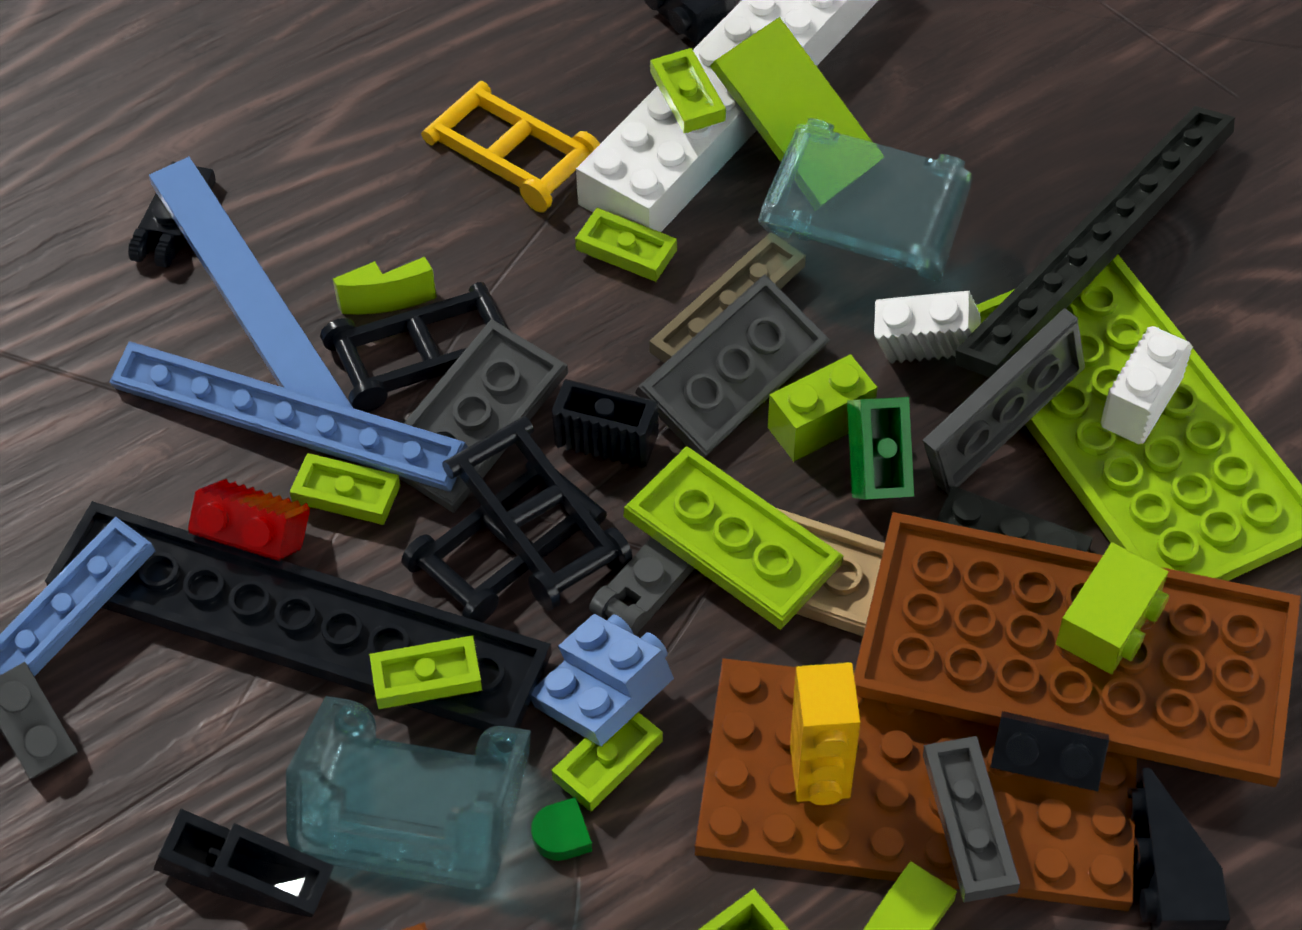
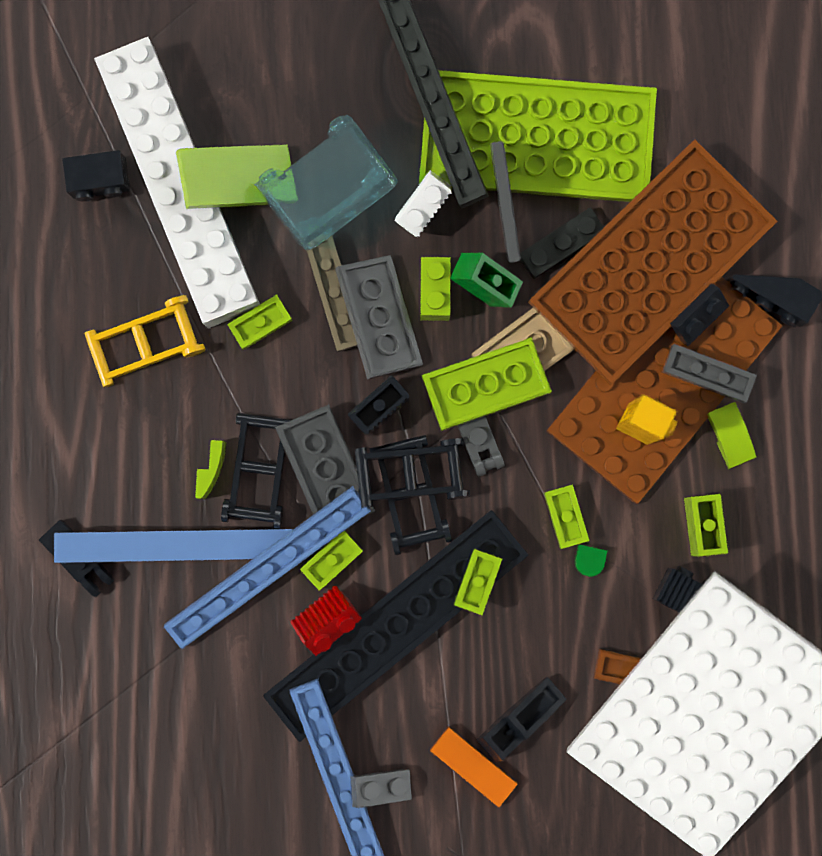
camera: 60 degrees left, 30 degrees up
(128, 844) = (473, 766): none -> orange tile
(401, 803) = (533, 623): clear light blue windscreen -> none
(603, 678) = (528, 497): medium blue plate -> none
(687, 90) = (194, 231): lime plate -> none
(1112, 608) = (656, 236): lime brick -> none
(1145, 385) = (533, 121): white brick -> none

